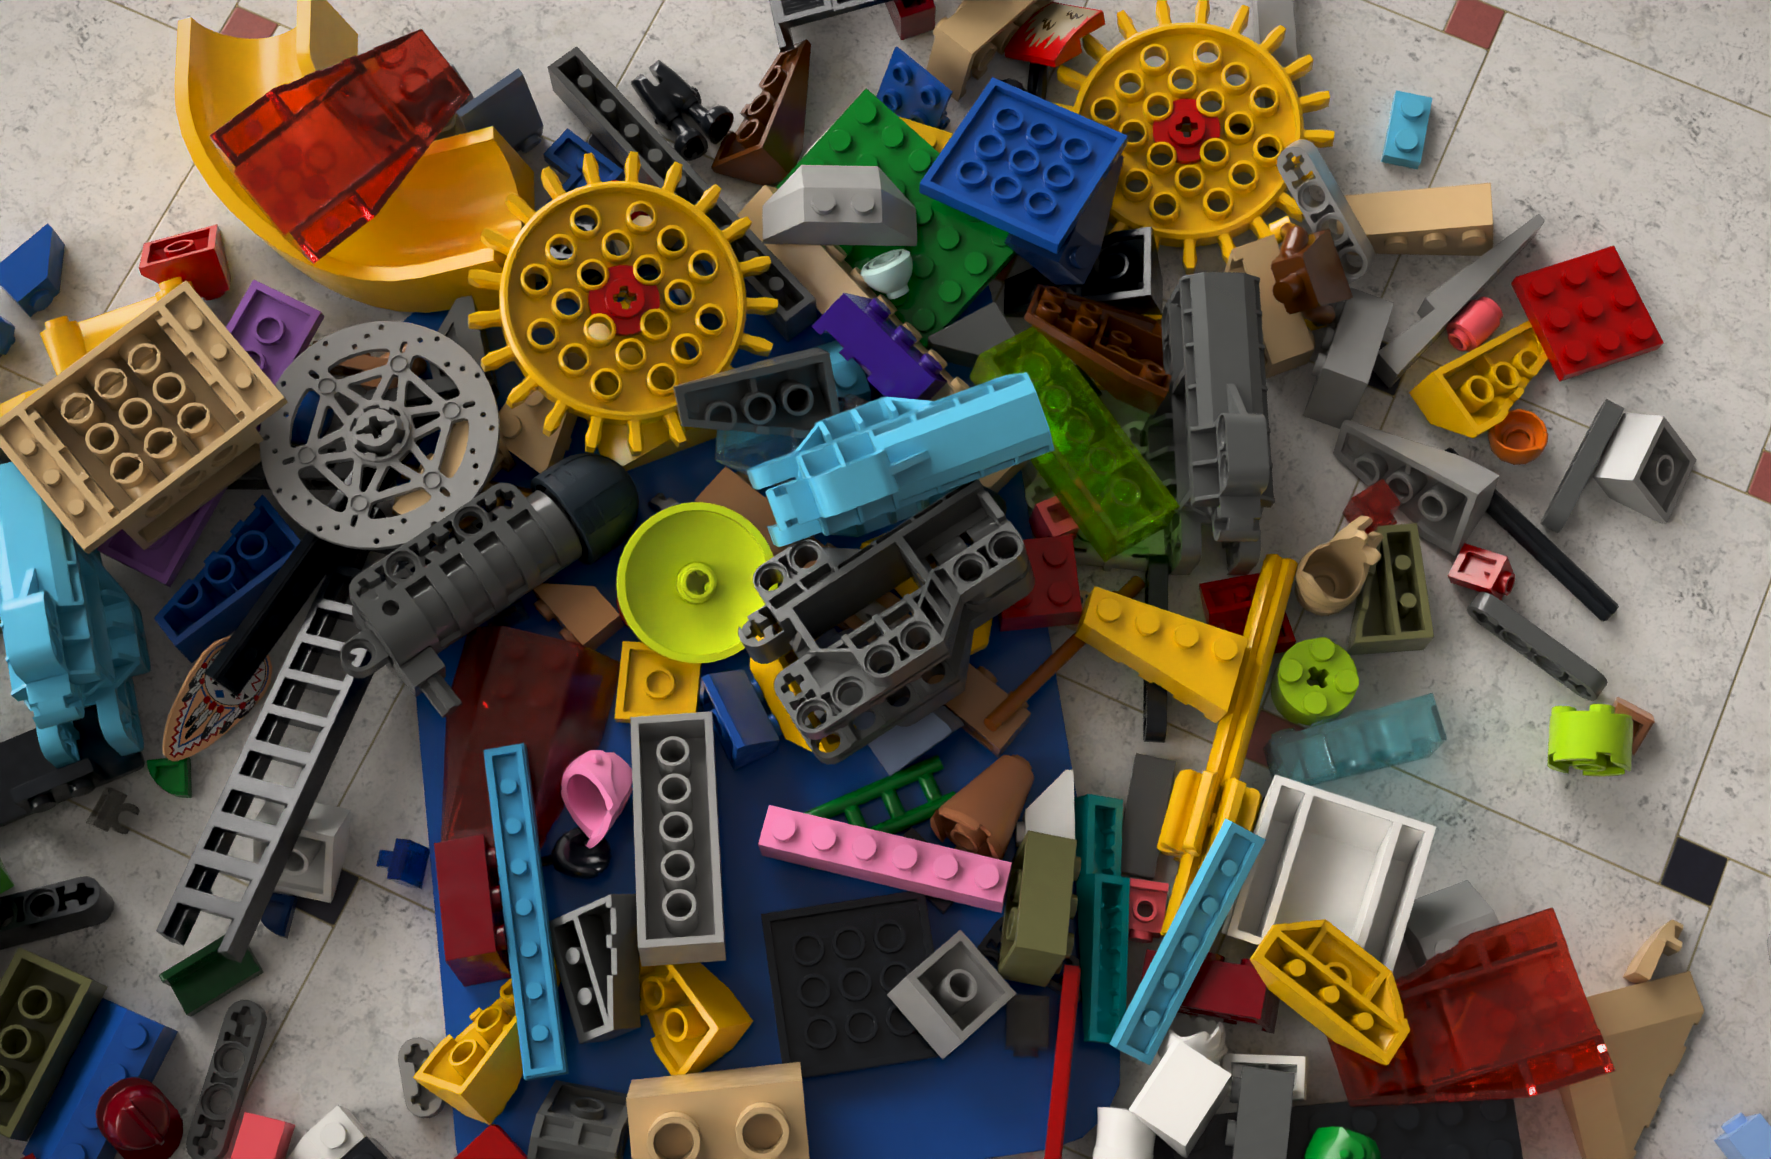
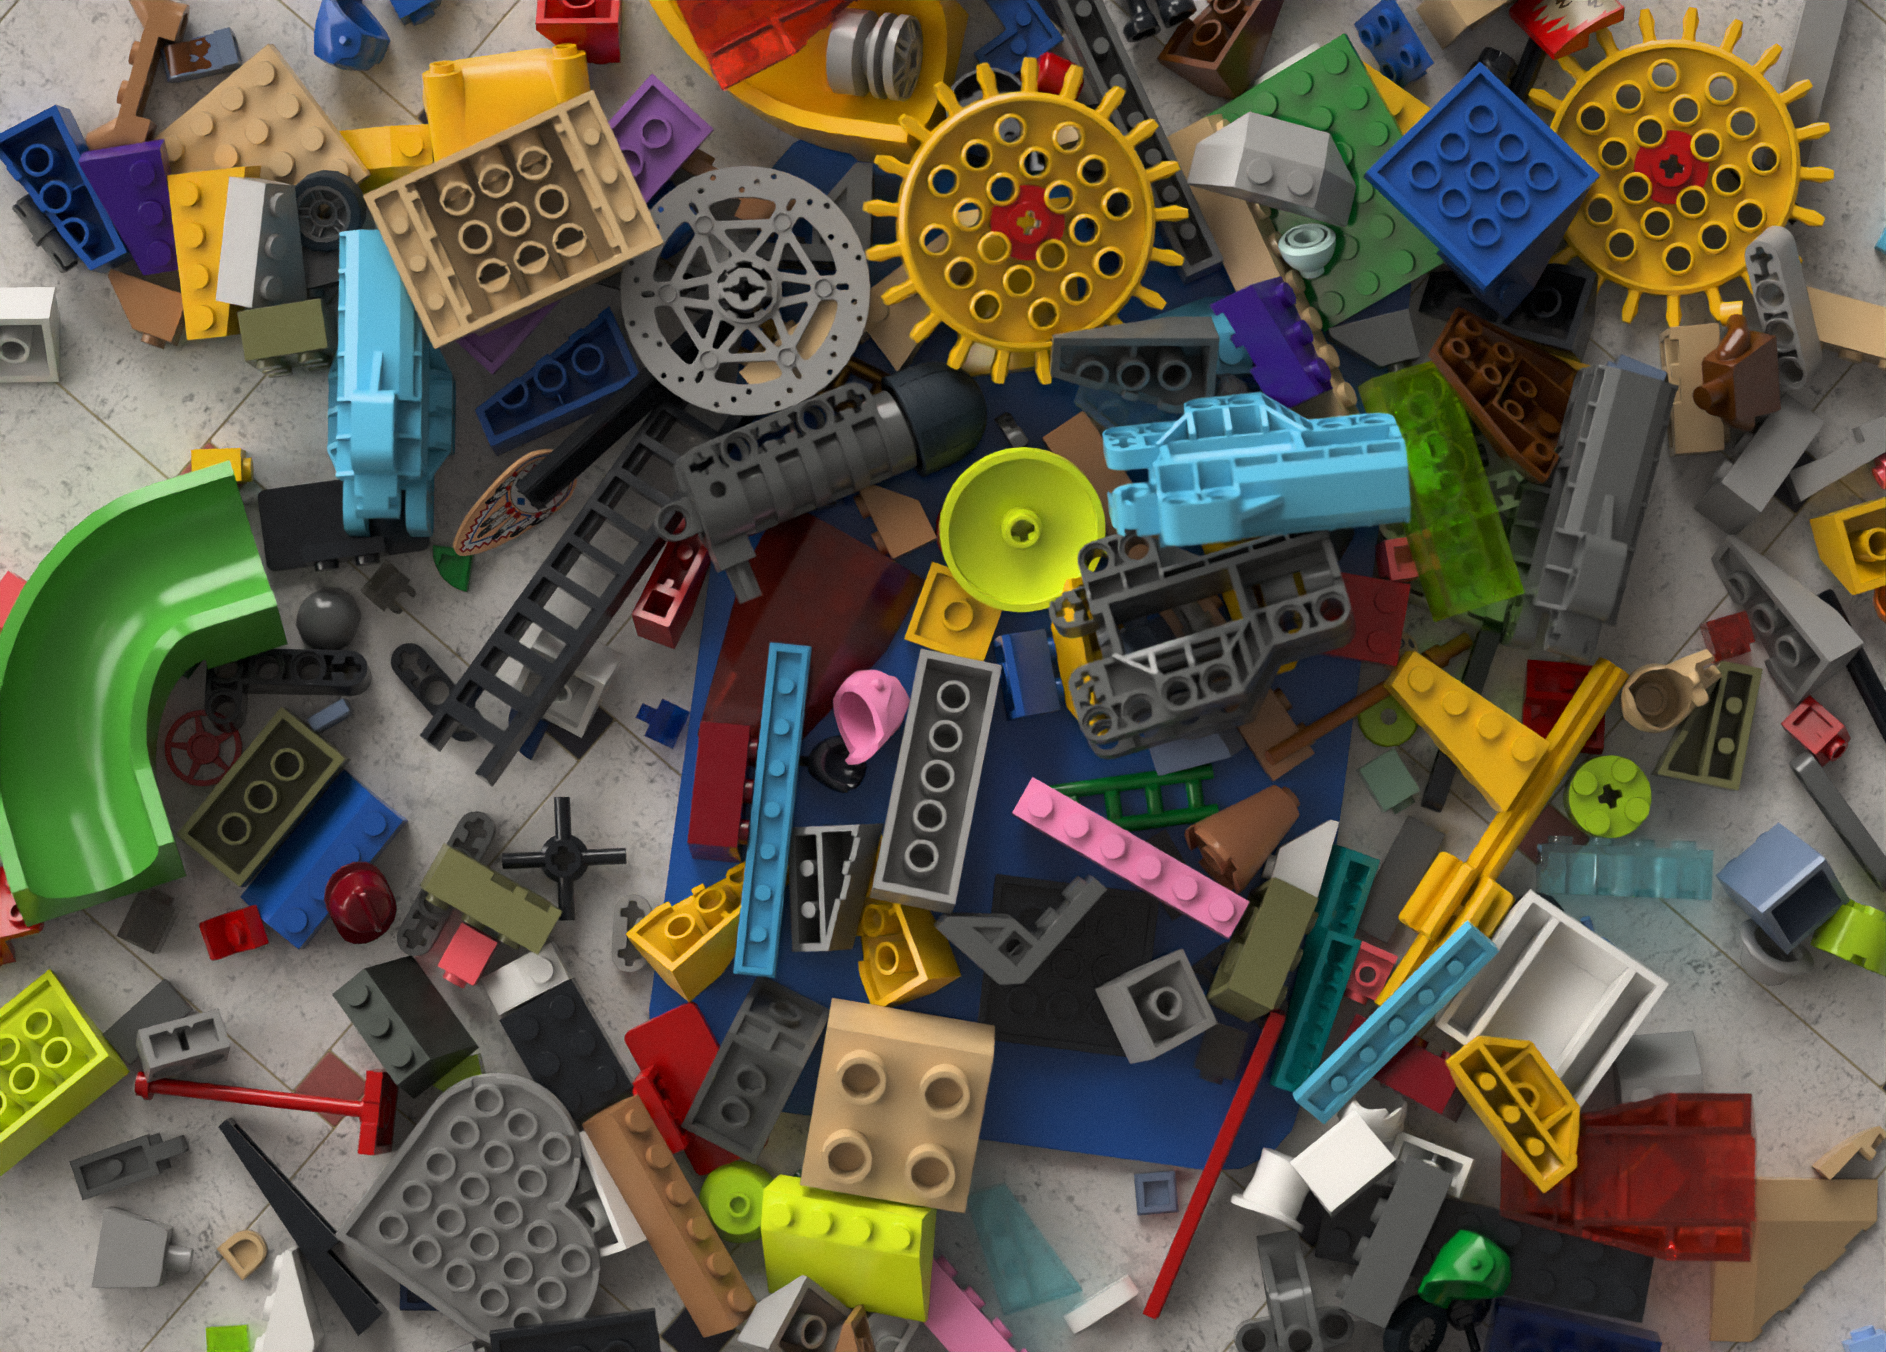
camera: 15 degrees right, 15 degrees up
(58, 856) = (328, 619): none -> dark grey hair
(77, 947) = (331, 715): none -> sand blue tile
(150, 891) = (409, 676): none -> black beam
(209, 976) = (450, 779): dark green panel -> none
(266, 1080) = (490, 900): none -> olive wedge
(325, 1015) = (545, 858): none -> black bar
(383, 735) = (672, 591): none -> red slope
(450, 206) = (874, 54): none -> light grey wheel
(761, 969) = (986, 935): none -> dark grey bracket
(1086, 687) = (1381, 733): none -> lime piece
(1107, 726) = (1389, 782): none -> sand green brick
(1508, 712) = (1783, 886): none -> sand blue slope
(1515, 786) = (1766, 960): none -> light grey hat

